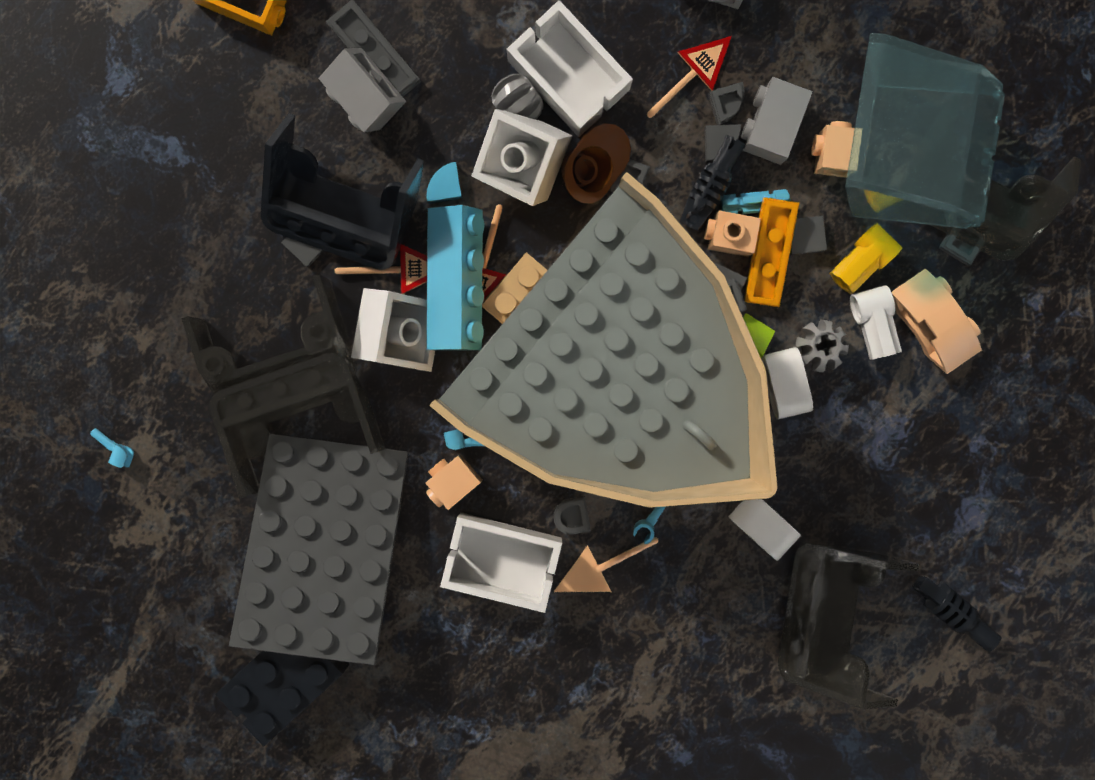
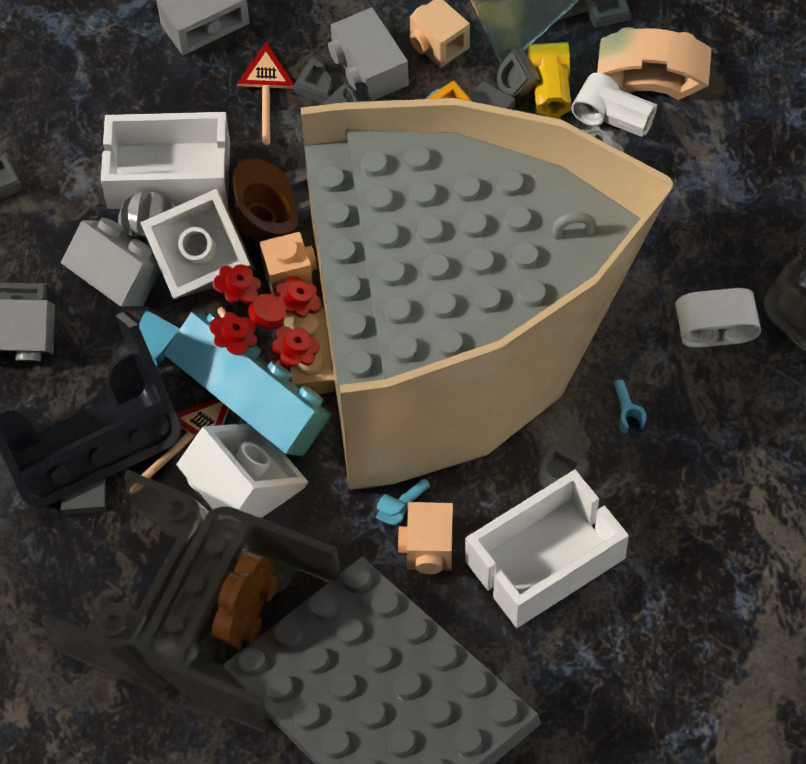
camera: 45 degrees left, 30 degrees down
(300, 424) = (243, 599): none -> reddish brown plate
(462, 109) = (112, 262): none -> light grey brick
(505, 250) = (267, 312): none -> red plant
(561, 222) = (285, 258): none -> light nougat brick
(587, 574) = (630, 504): light nougat piece -> none
(846, 236) = (517, 74): none -> dark grey tile

